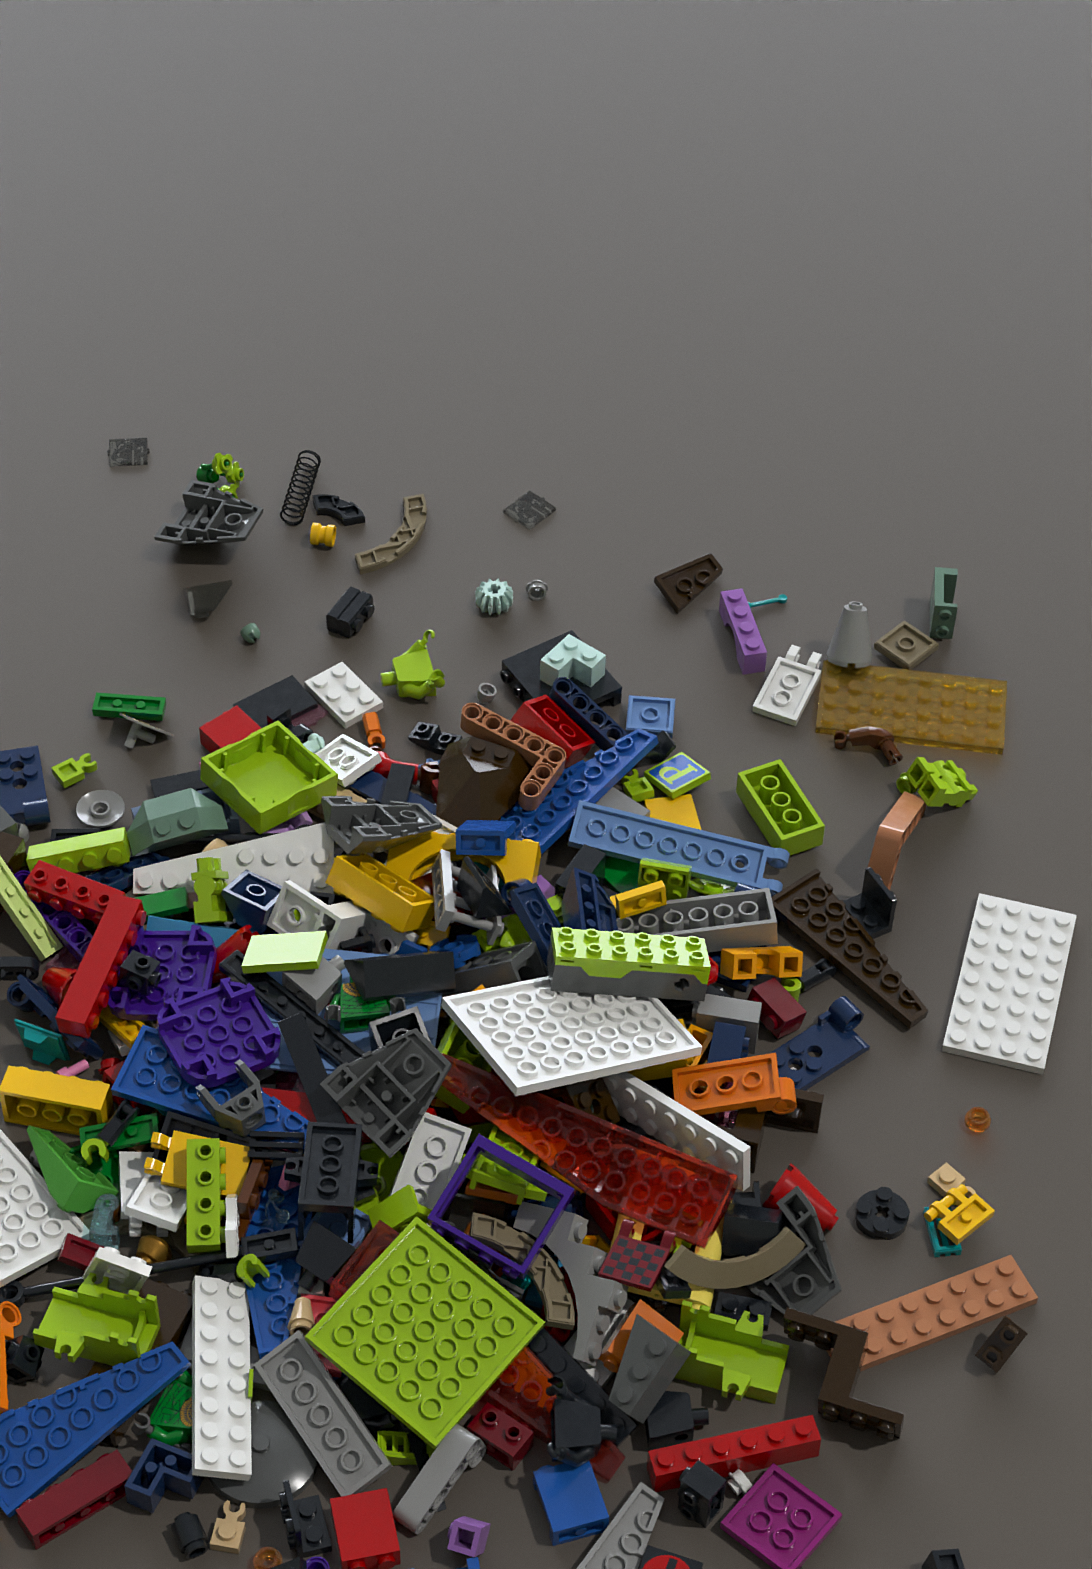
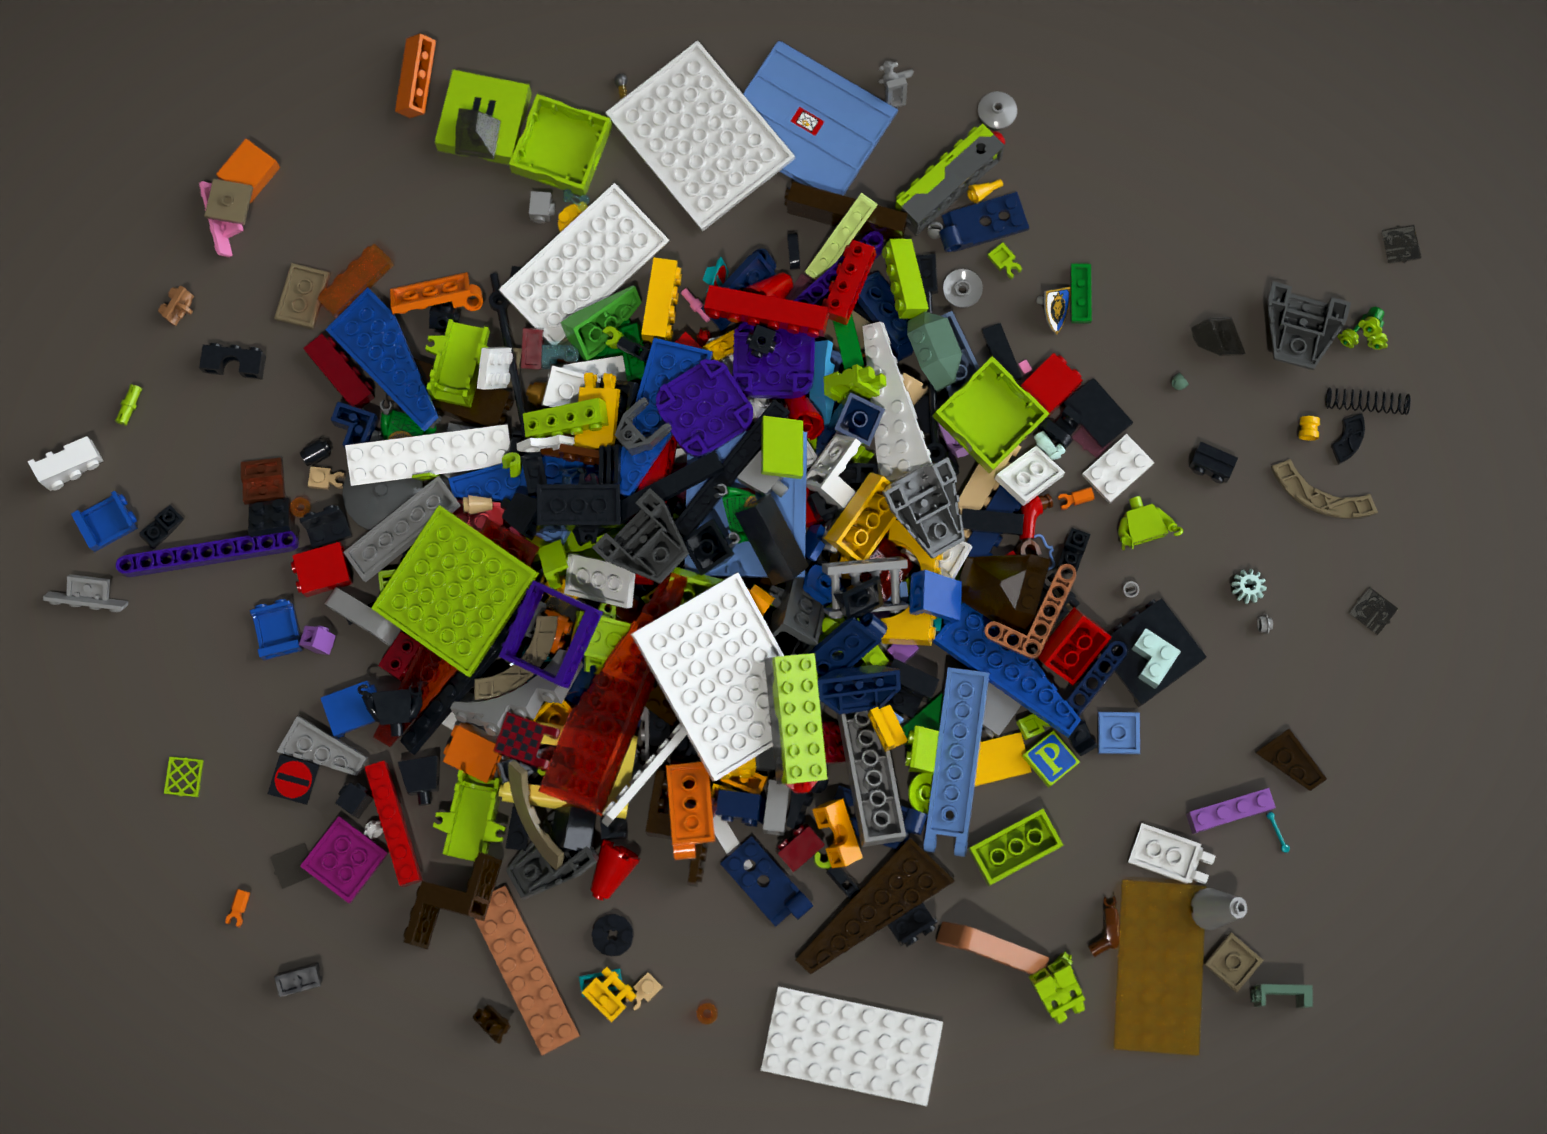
camera: 90 degrees right, 30 degrees up
(646, 1369) = (440, 753): dark grey wedge -> none

